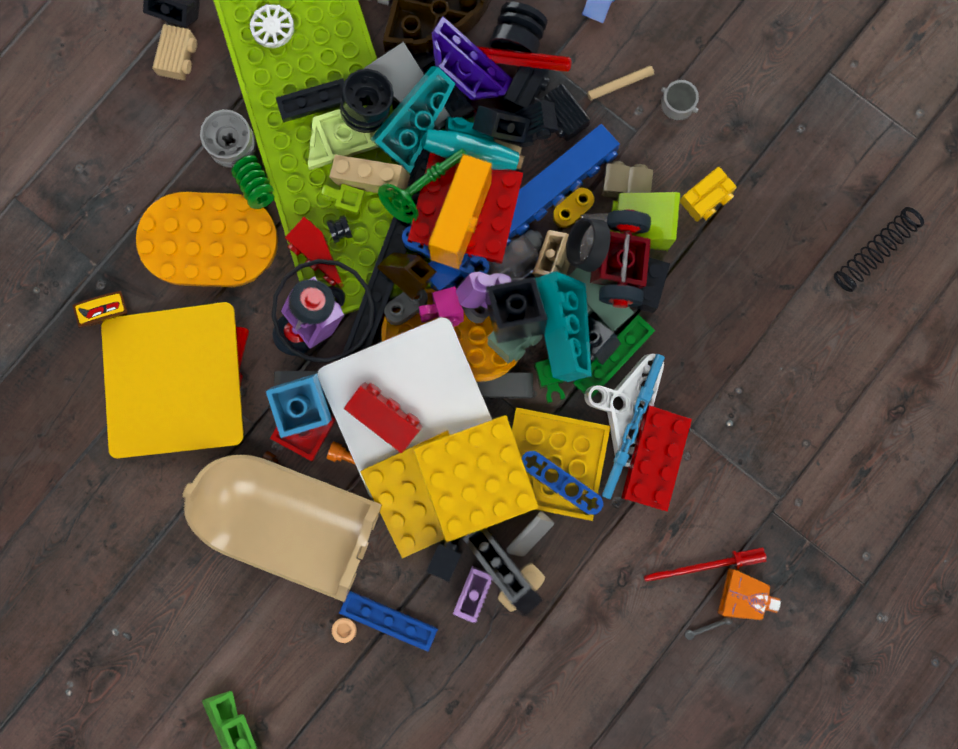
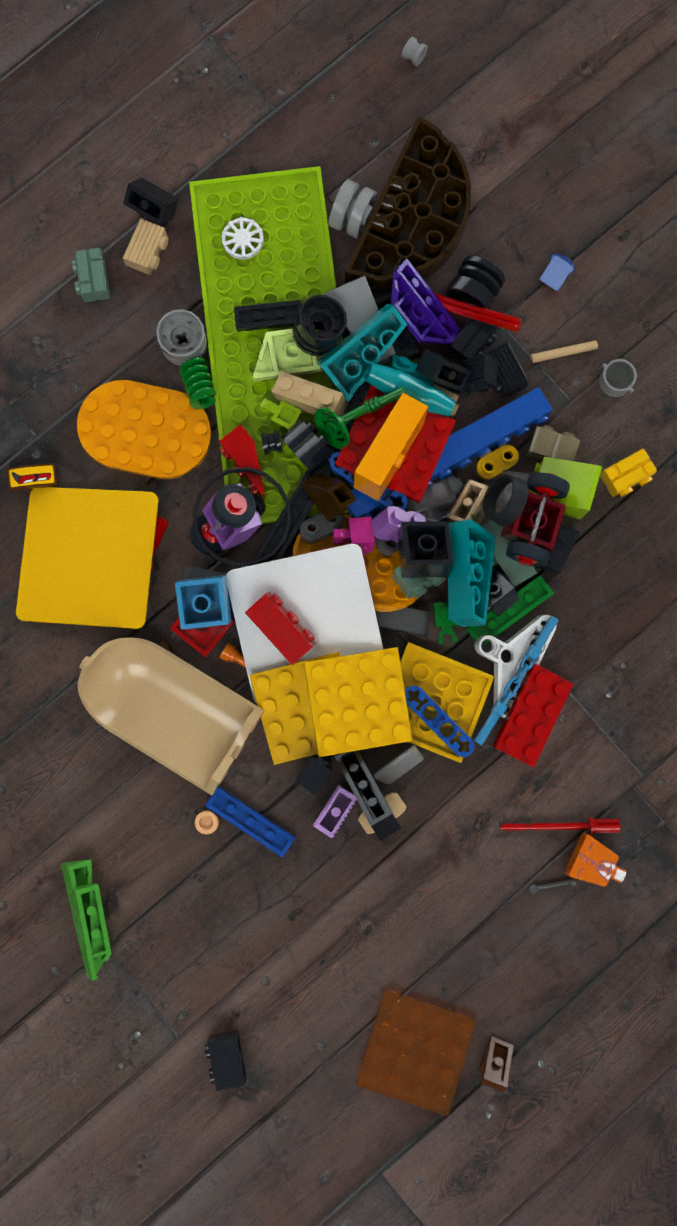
camera: 10 degrees right, 0 degrees up
(123, 90) = (92, 275): none -> sand green brick
(375, 225) = (306, 445): none -> black brick

